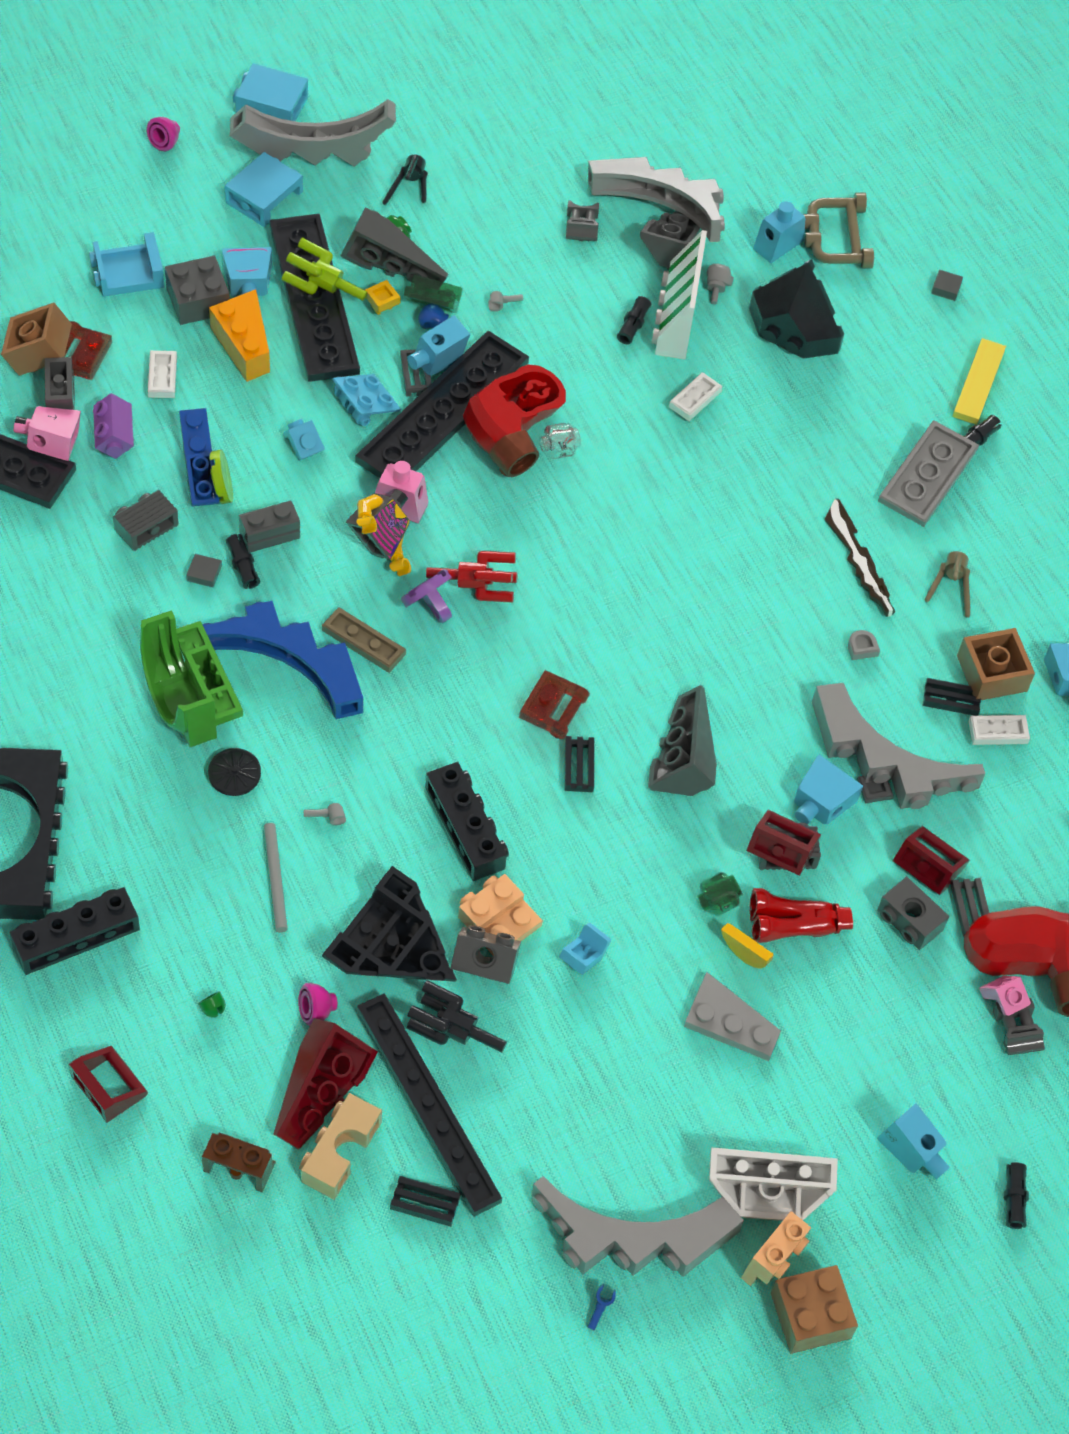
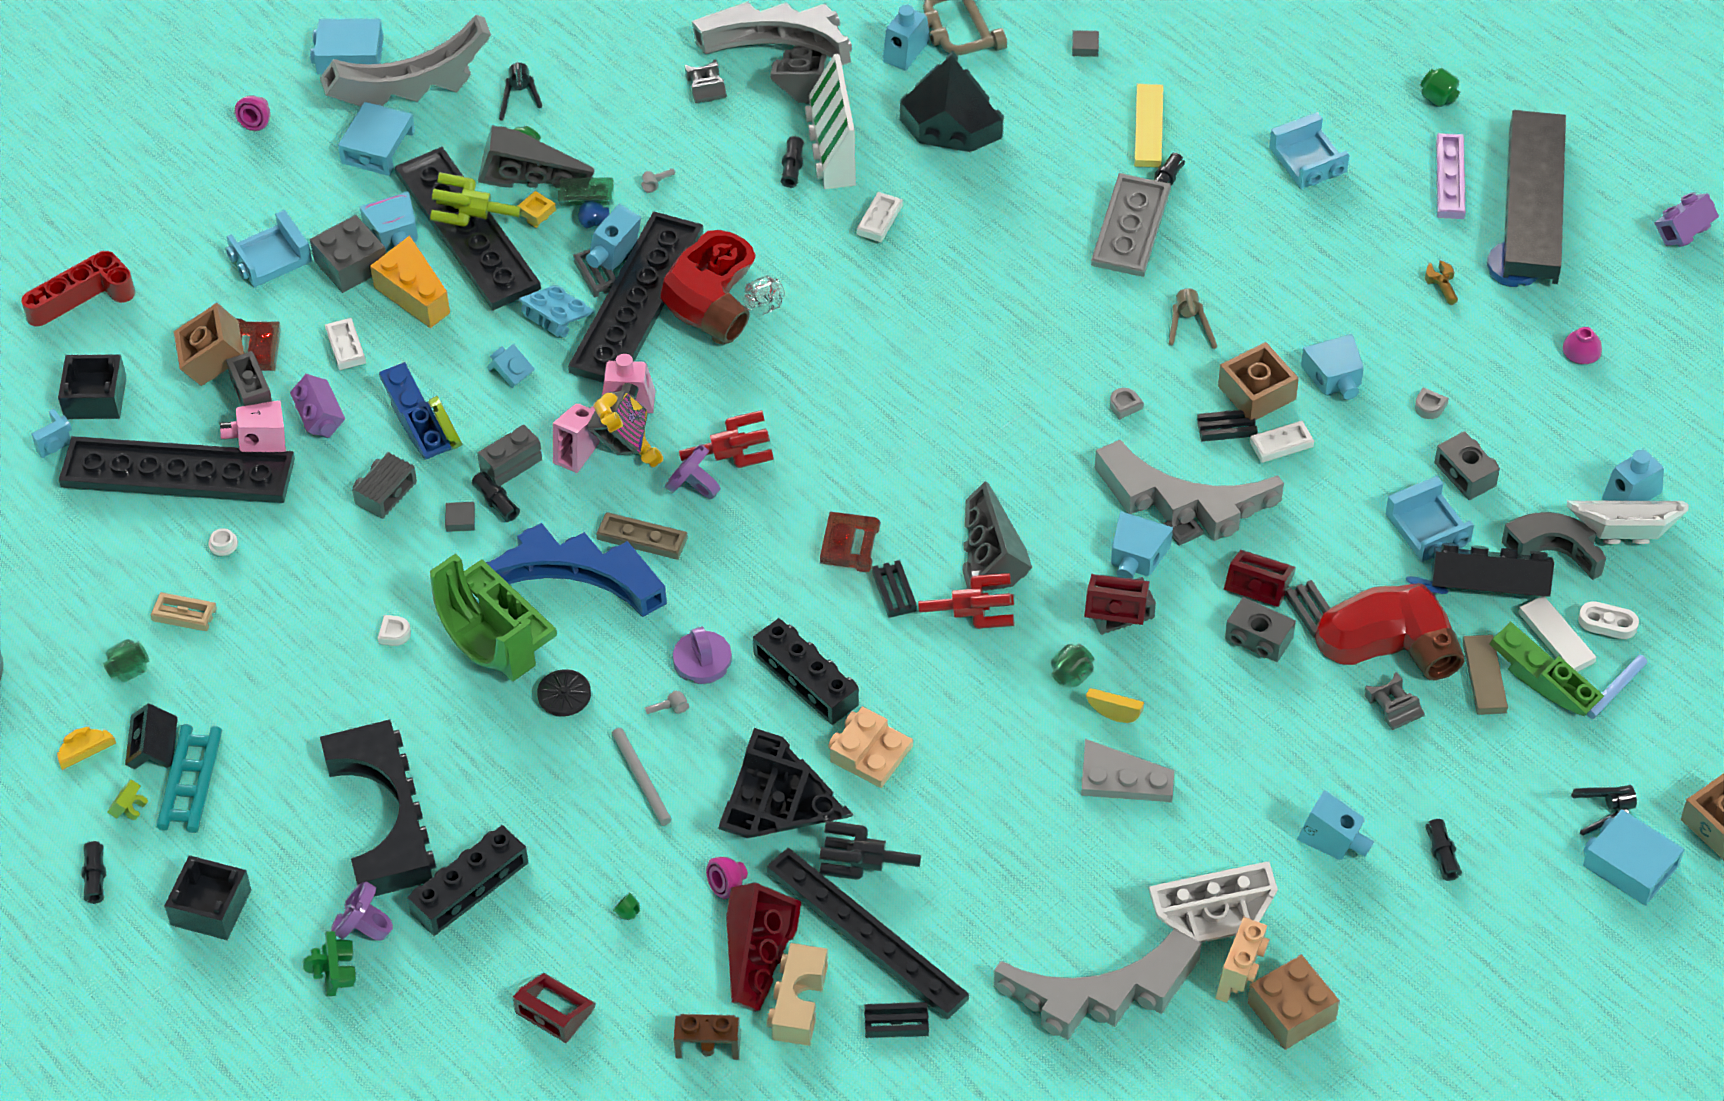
camera: 10 degrees left, 5 degrees down
(102, 663) = (394, 631): none -> white tile
(329, 526) = (572, 439): none -> bright pink torso
(375, 776) = (702, 656): none -> medium lavender tile
(469, 959) = (886, 792): dark grey brick -> none
(586, 949) = (964, 752): medium azure bracket -> none
(600, 1307) = (1095, 1062): blue hand -> none
(650, 802) = (975, 602): none -> red plant
(718, 278) = (860, 100): light grey piece -> none
(785, 918) = (1143, 668): red piece -> none
(859, 557) = (1092, 322): dark brown sword -> none
(1008, 992) = (1373, 672): bright pink bracket -> none

